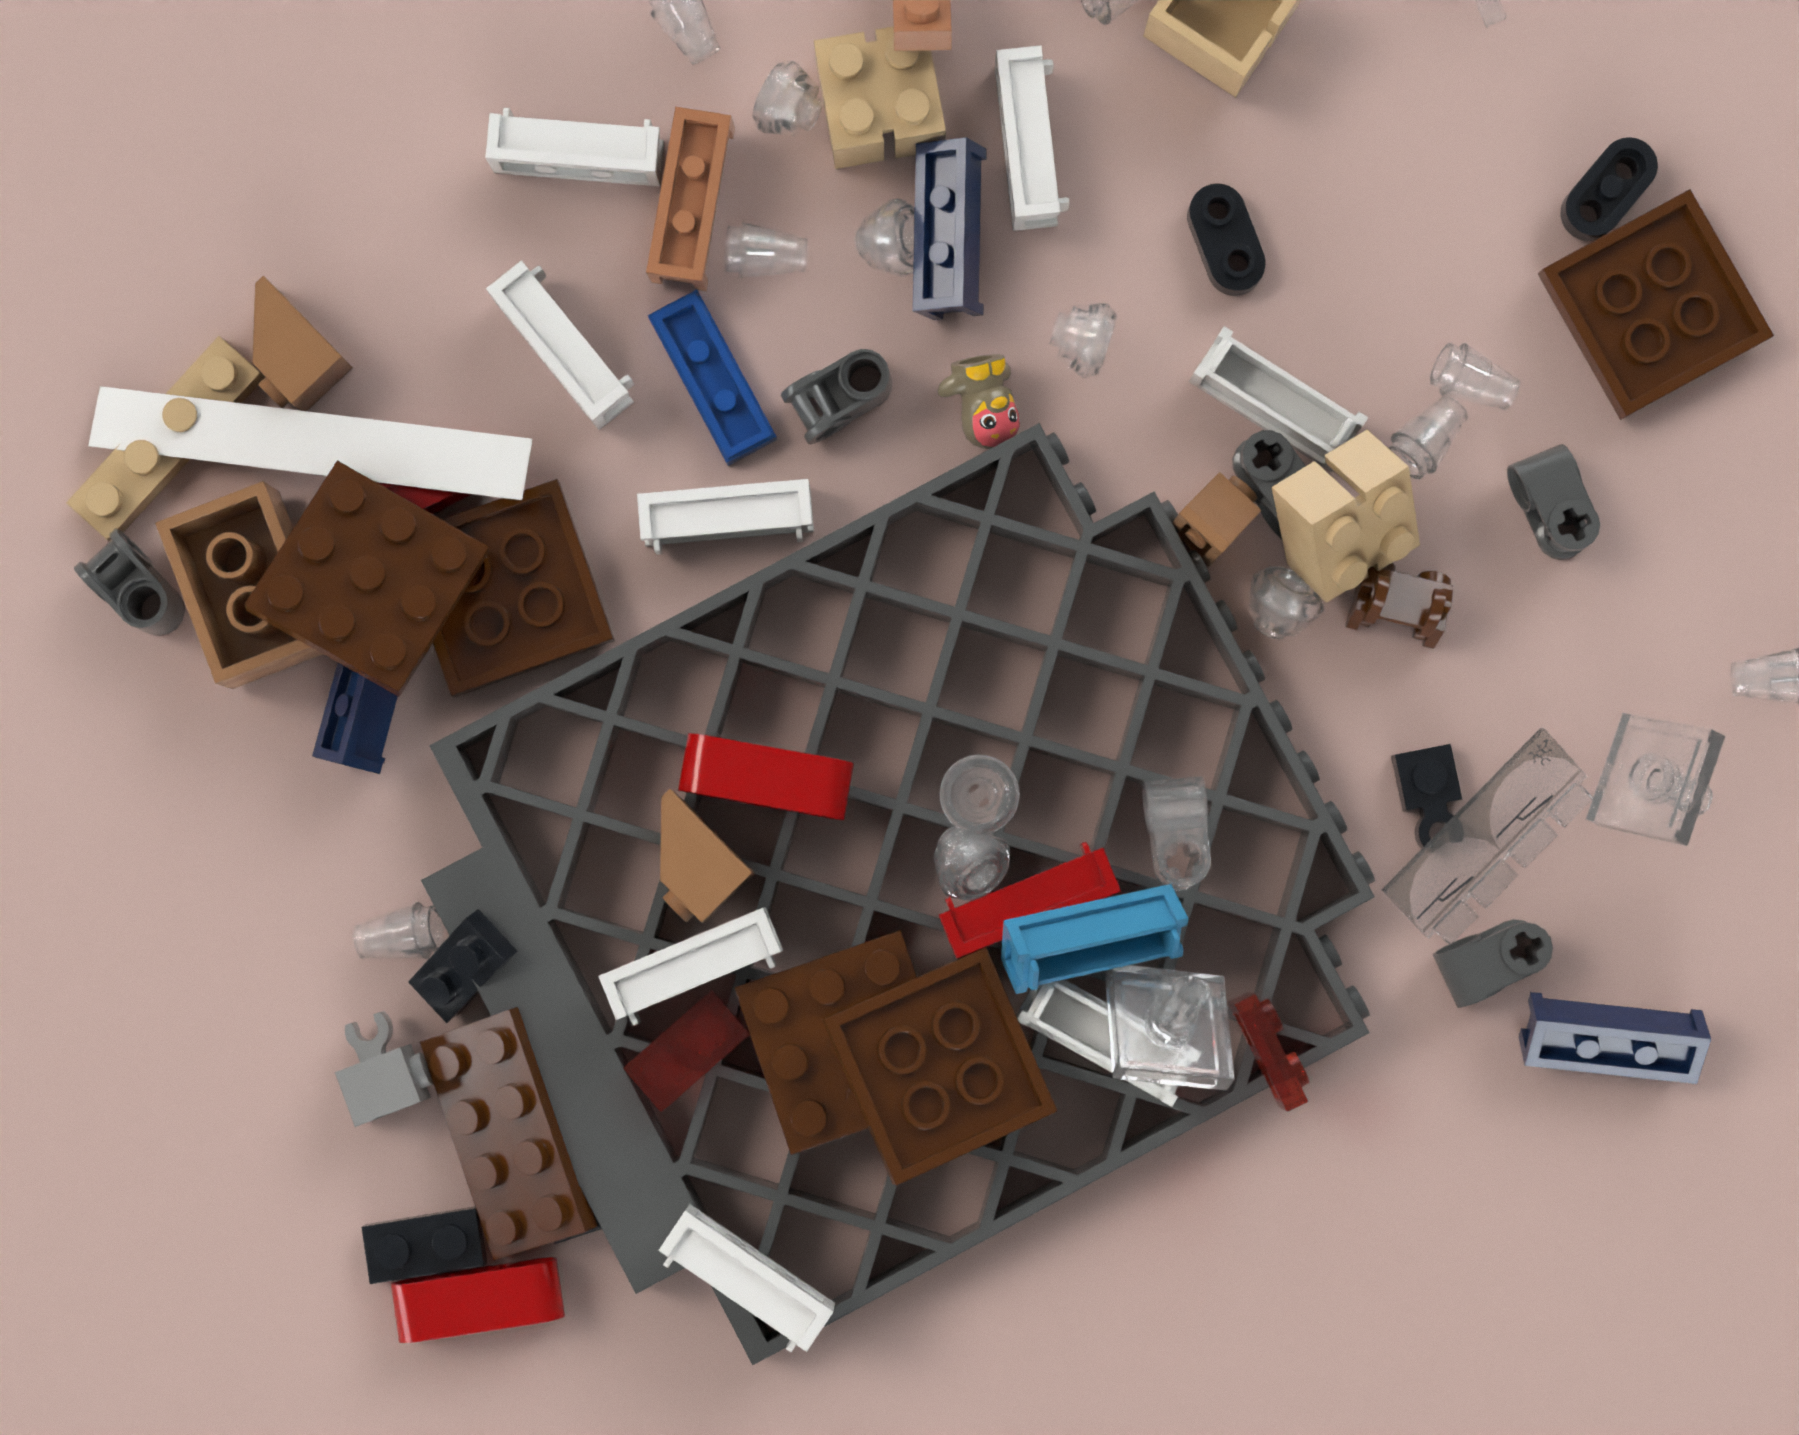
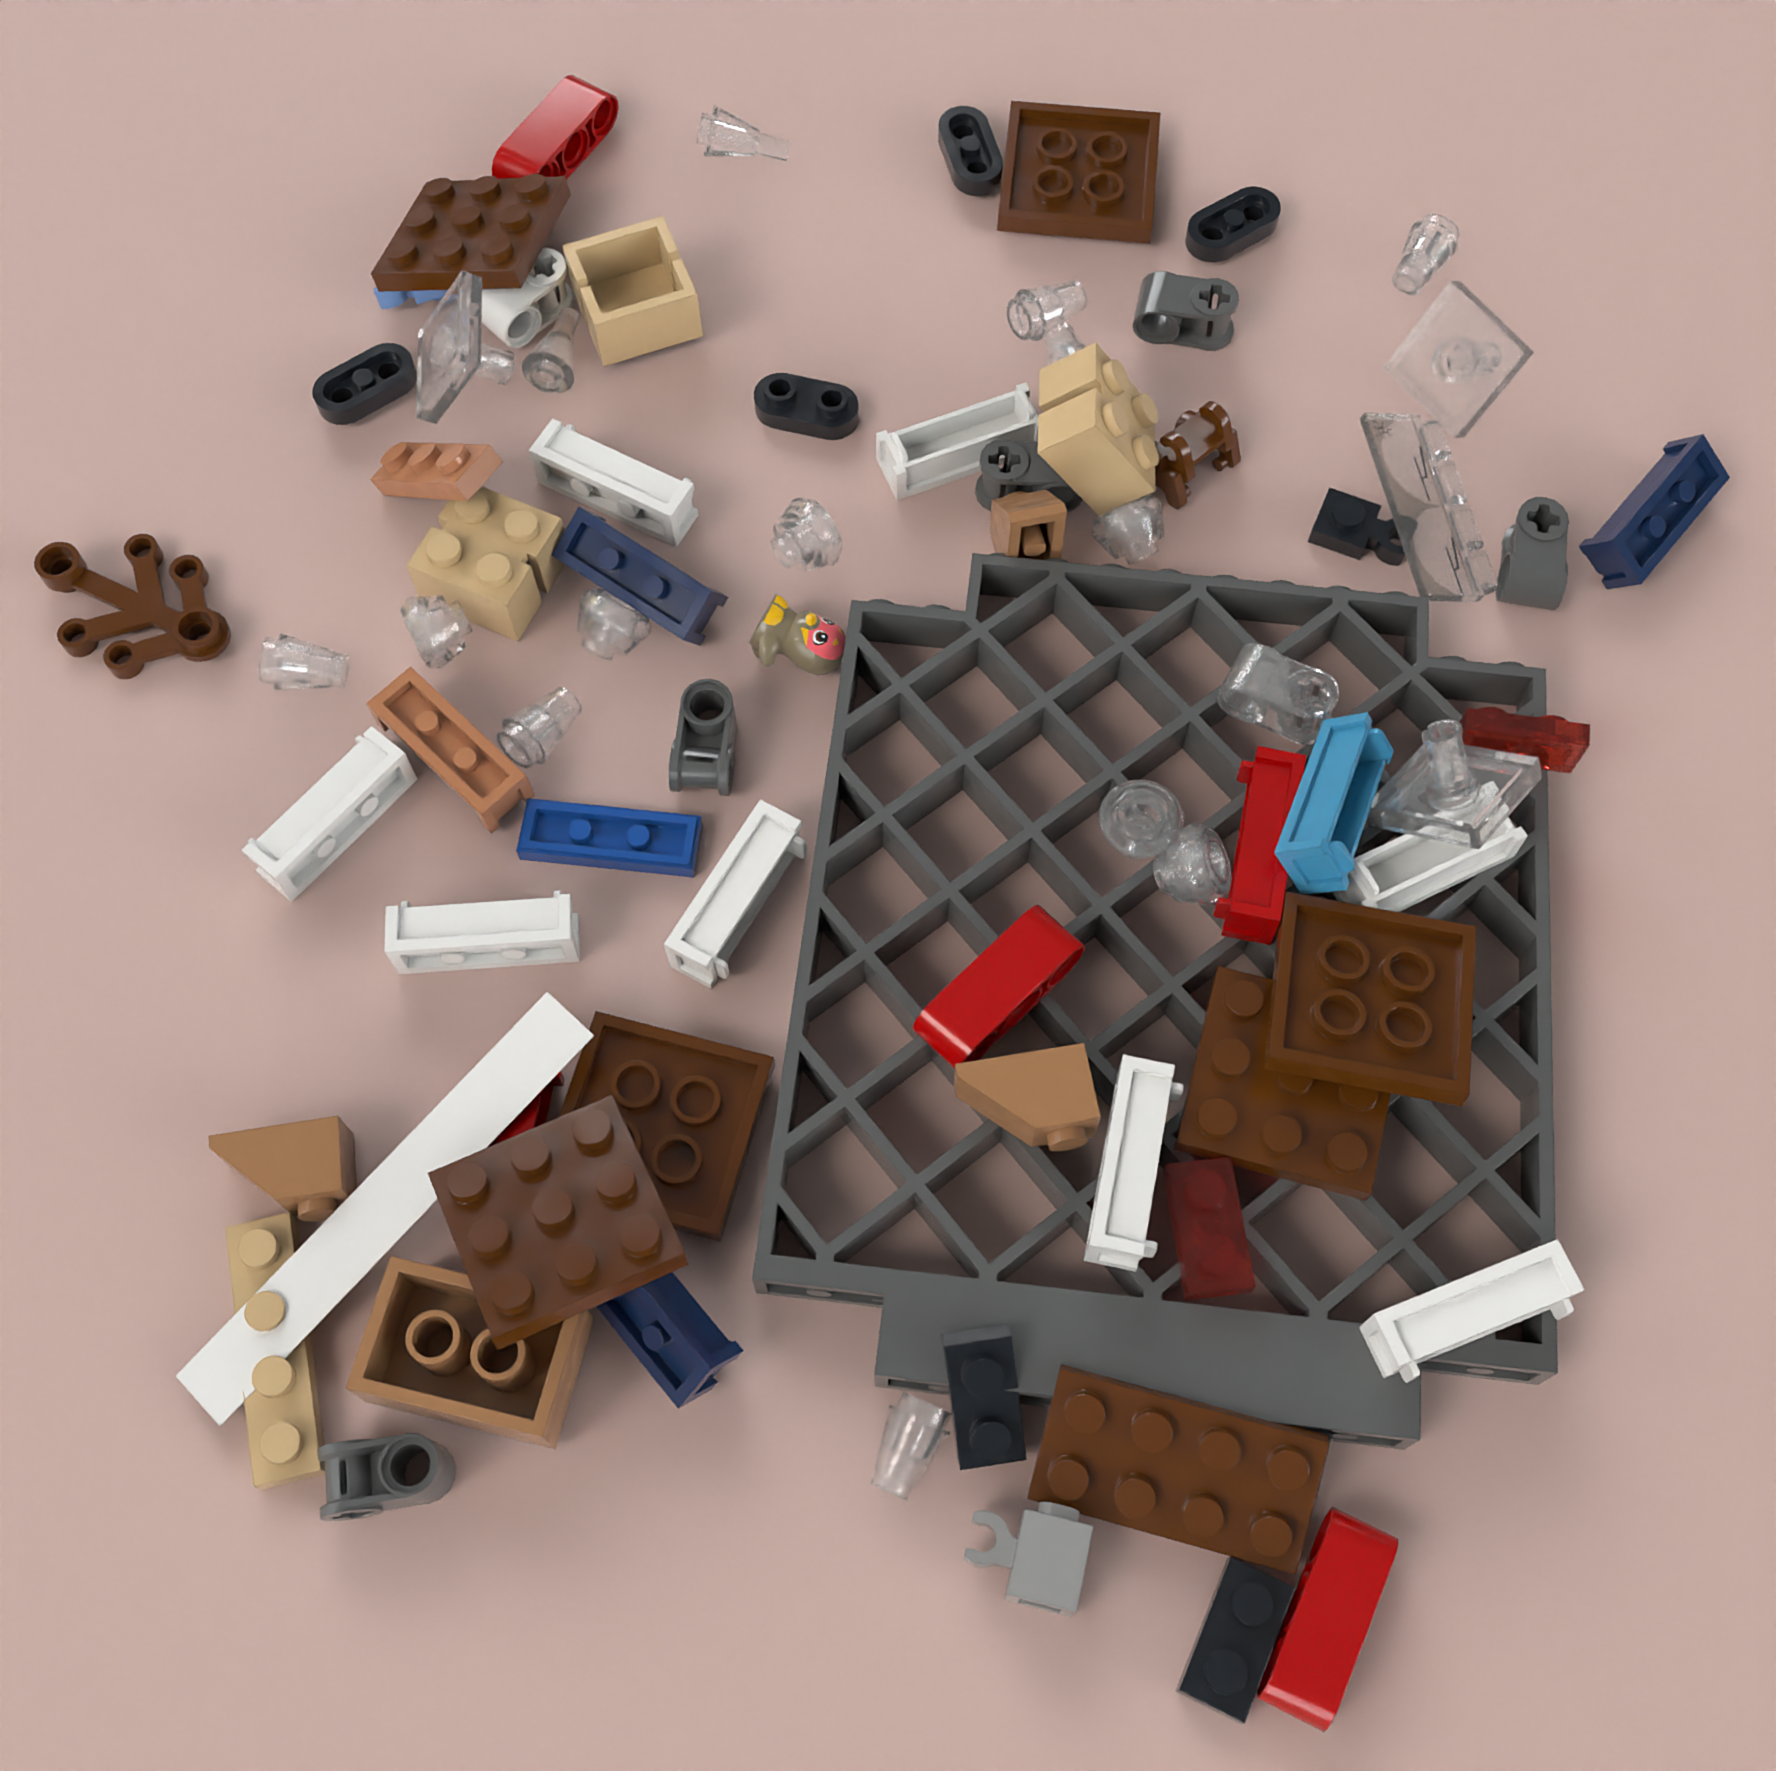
camera: 55 degrees left, 20 degrees down
(1688, 480) = (1225, 225): none -> black plate

